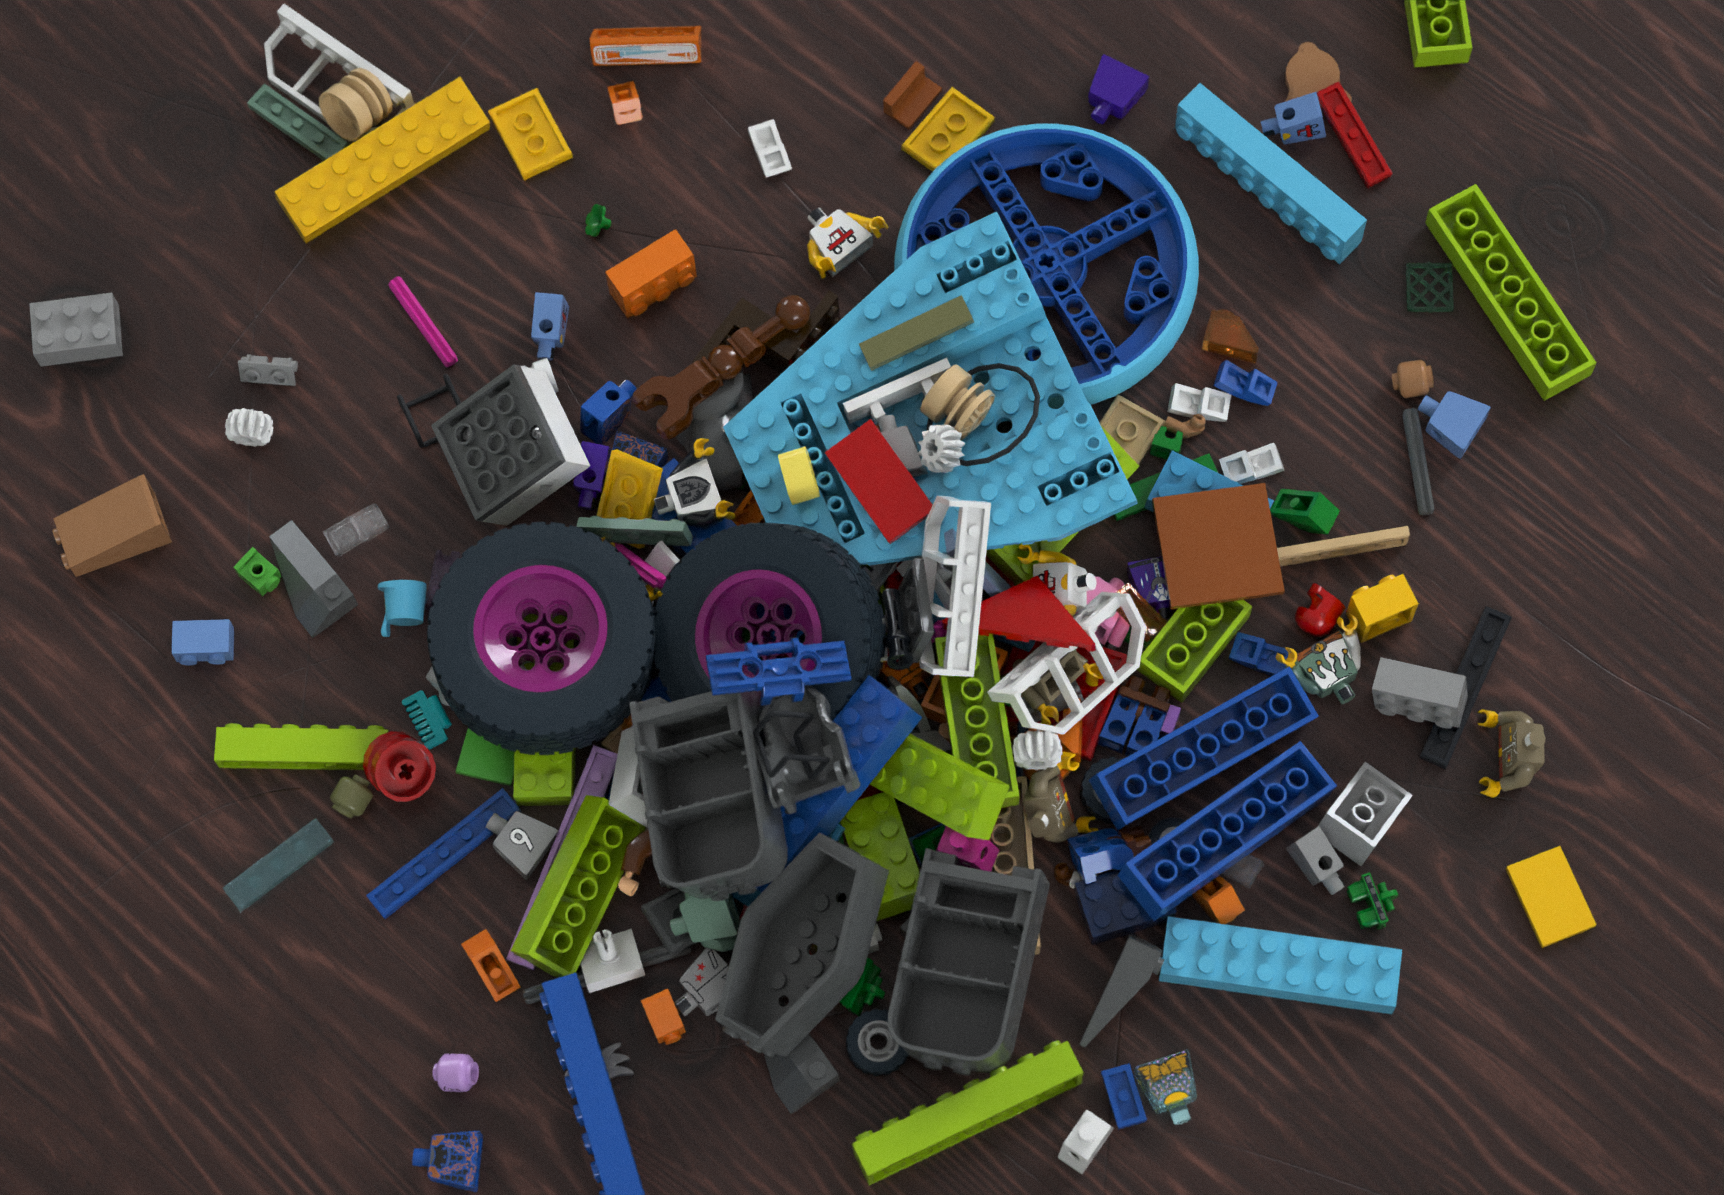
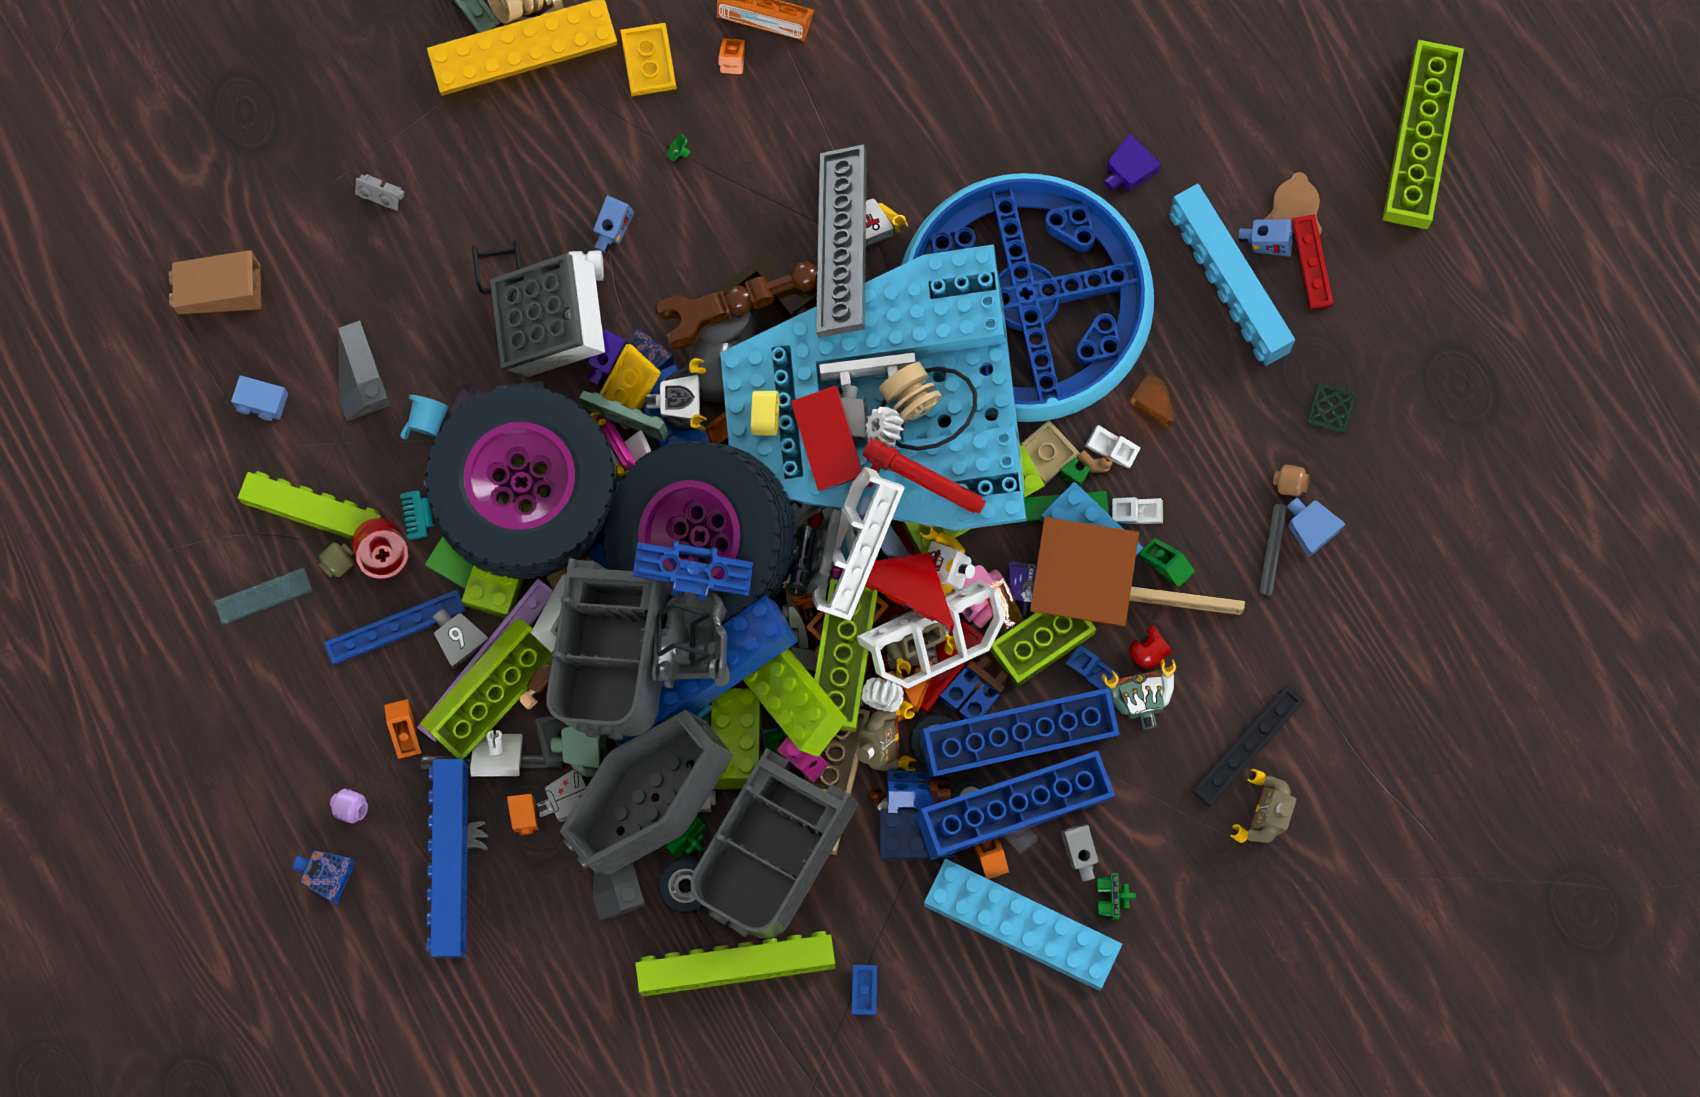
camera: 15 degrees right, 5 degrees up
(76, 329) = (237, 112): light grey brick -> none
(249, 427) = (348, 235): white gear -> none
(262, 582) = (315, 347): bright green brick -> none
(356, 529) = (407, 344): clear slope -> none
(423, 322) = (514, 189): dark pink axle -> none
(606, 411) = (635, 308): blue torso -> none
(651, 274) = (706, 207): orange brick -> none
(769, 148) = (835, 128): white slope -> none
(821, 263) = (841, 241): none -> plate
(911, 96) = (964, 121): dark orange panel -> none
(916, 333) = (899, 325): olive tile -> none
(947, 129) = (984, 157): yellow tile -> none
(961, 480) = (890, 459): none -> red cylinder
(1084, 1141) = (822, 1015): white torso -> none
(1129, 975) = (901, 894): dark grey wedge -> none
(1169, 1085) = (903, 992): torso -> none
(1170, 720) = (1001, 701): medium lavender tile -> none
(1247, 386) = (1157, 445): blue slope -> none
(1363, 813) = (1130, 823): light grey slope -> none
(1382, 607) = (1200, 661): yellow brick -> none
(1419, 693) = (1207, 741): light grey brick -> none
(1510, 292) = (1394, 433): lime brick -> none
(1550, 896) = (1258, 937): yellow tile -> none

